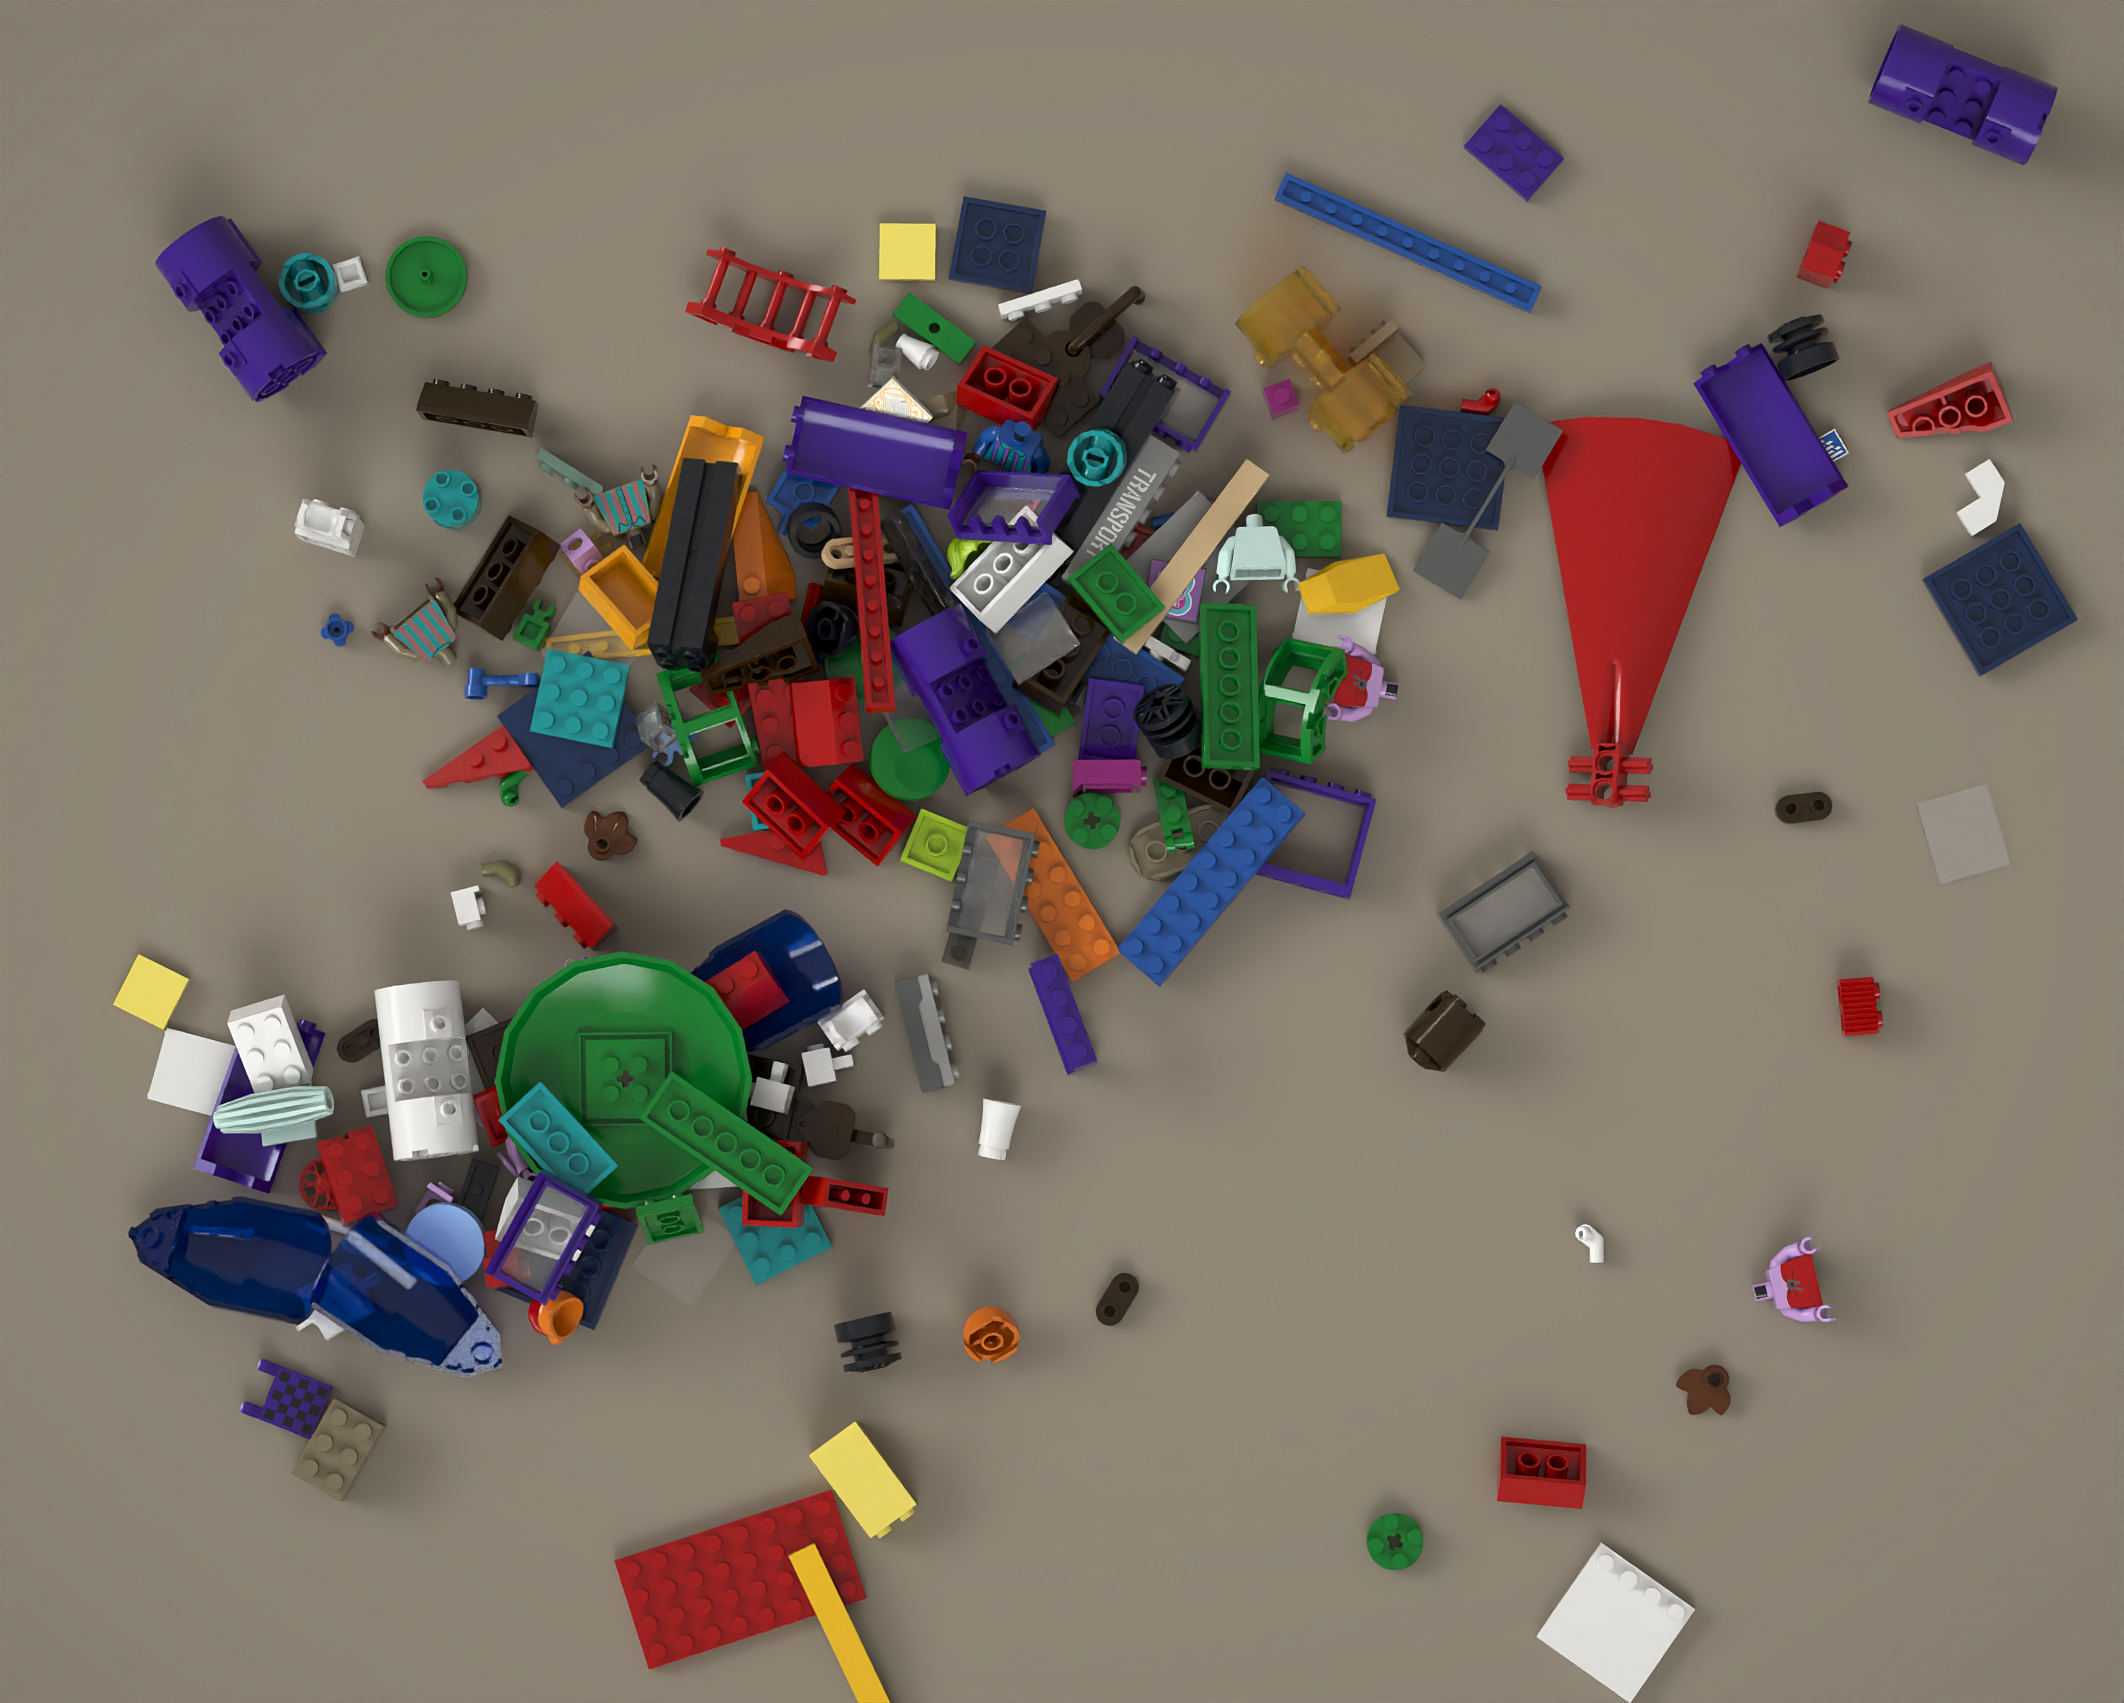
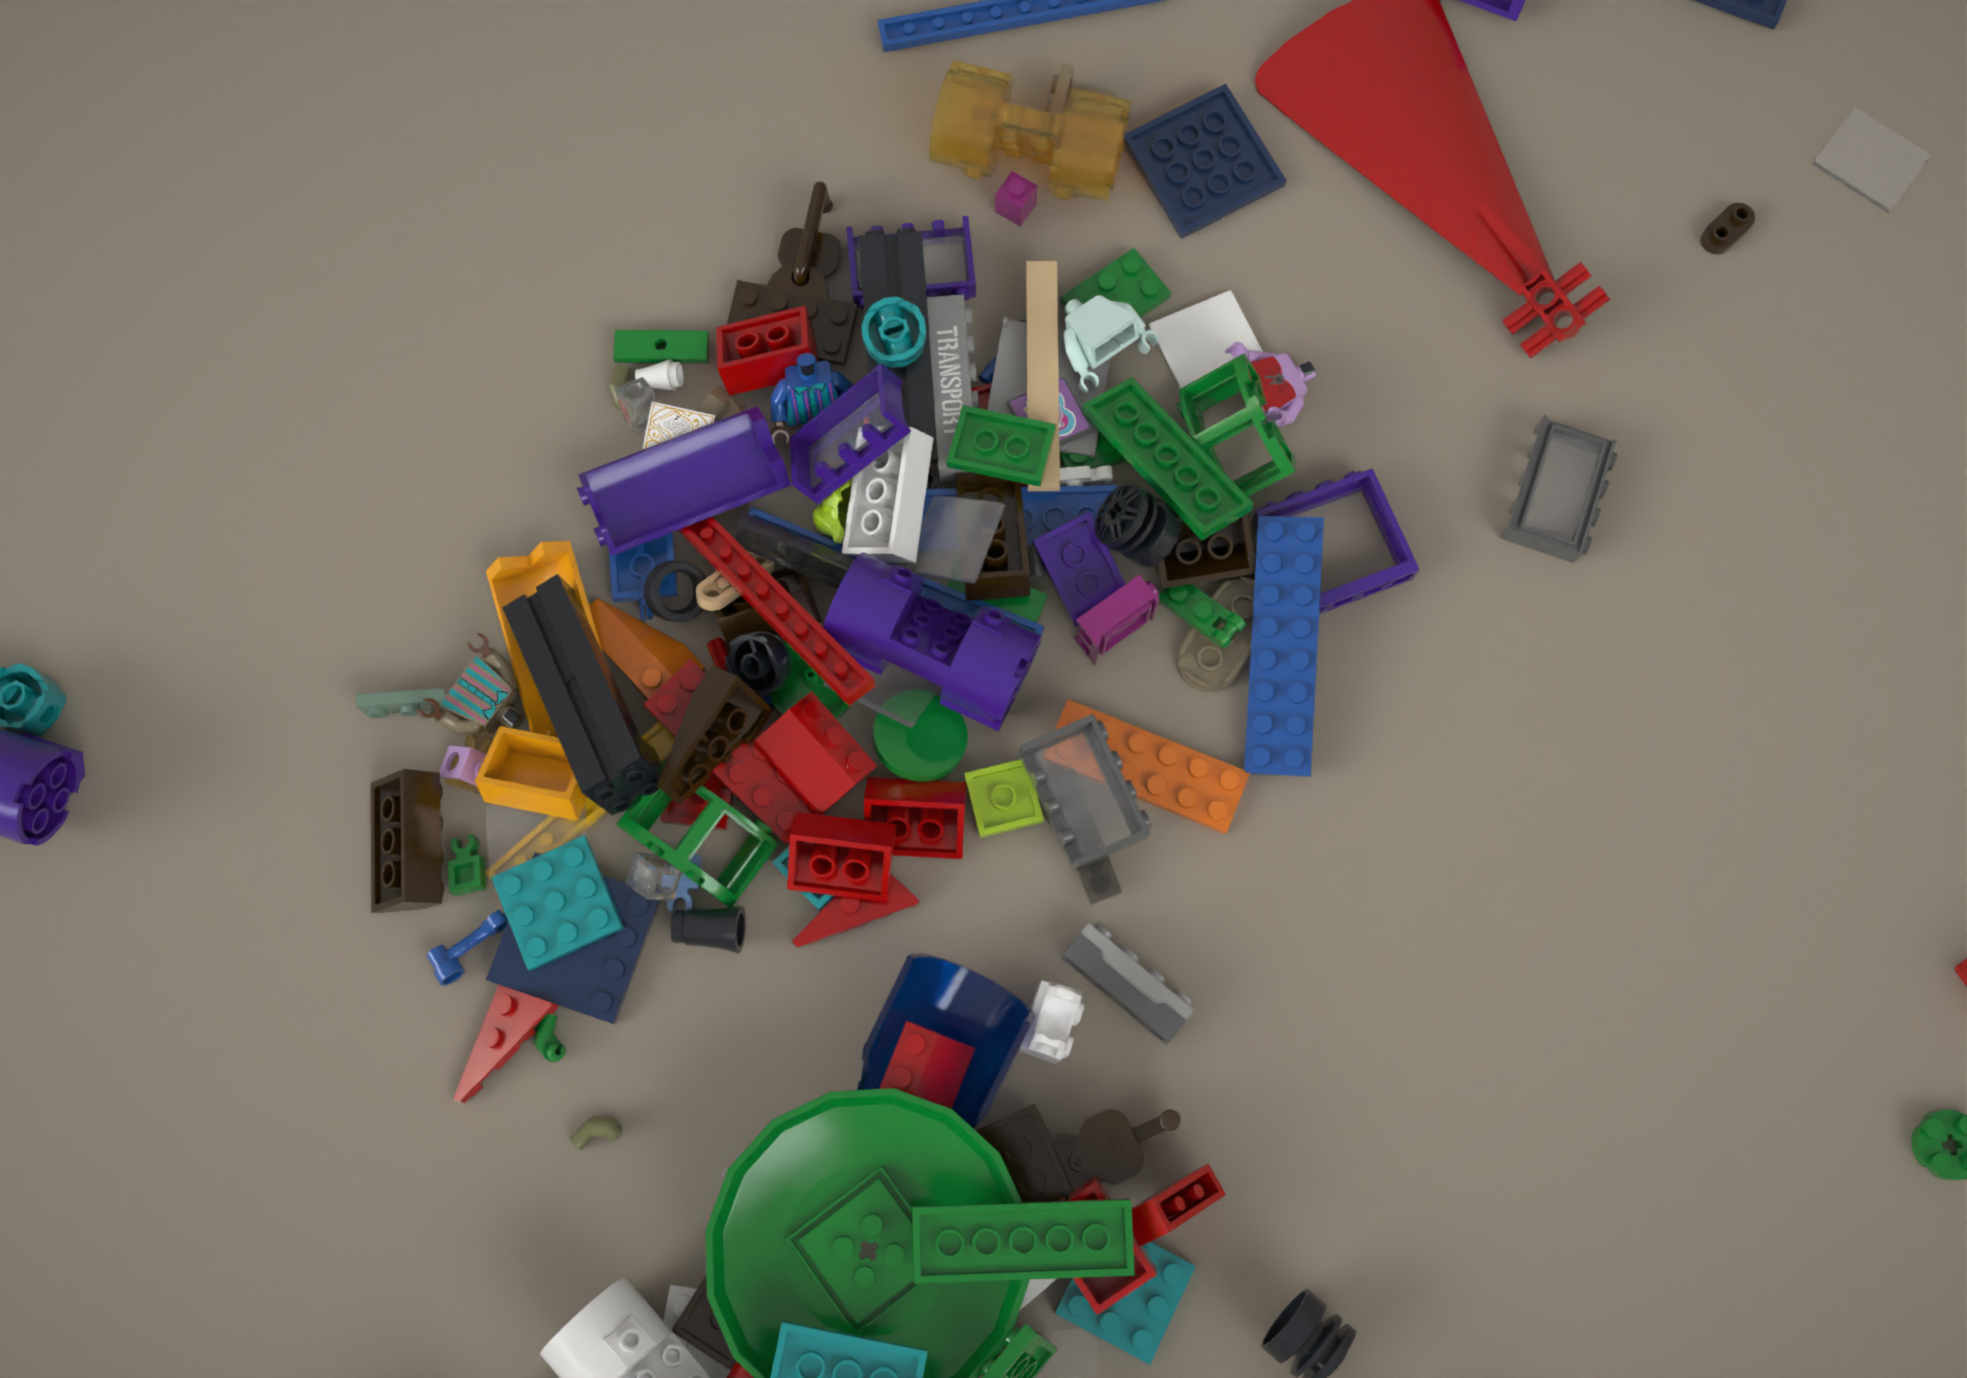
camera: 40 degrees left, 10 degrees down
(329, 527) = (184, 913): white brick -> none
(329, 630) = (258, 1007): blue plate -> none
(350, 274) = (64, 668): white tile -> none
(425, 629) = (355, 947): dark tan torso -> none
(426, 277) = (143, 621): green piece -> none
(452, 499) = (300, 804): teal brick -> none
(469, 907) = (586, 1191): white brick -> none
(478, 409) = (271, 704): dark brown slope -> none
(574, 907) = (693, 1112): red slope -> none
(610, 831) = (676, 1012): reddish brown plate -> none
(765, 332) = (504, 453): red fence -> none
(772, 1093) = (1027, 1152): white brick -> none
(821, 1066) = (1051, 1090): white brick -> none
(907, 252) = (589, 301): light yellow tile -> none
(990, 1334) = (1419, 1236): orange cylinder -> none
(997, 245) = (667, 241): dark blue plate -> none
(997, 1127) = (1265, 1024): white plant -> none
(1040, 300) = (739, 260): white plate -> none
(1062, 1014) = (1247, 866): dark purple window -> none
(1081, 833) = (1130, 655): green plate -> none
(1117, 1299) = (1503, 1107): dark brown plate -> none
(1348, 585) = (1198, 309): yellow piece -> none
(1442, 1032) = (1599, 628): dark brown cylinder -> none
(1453, 556) = (1267, 228): dark grey hinge -> none
(1484, 405) = (1192, 90): red arm -> none
(1593, 1240) = (1879, 722): white arm -> none
(1858, 1006) = (1920, 353): red brick -> none

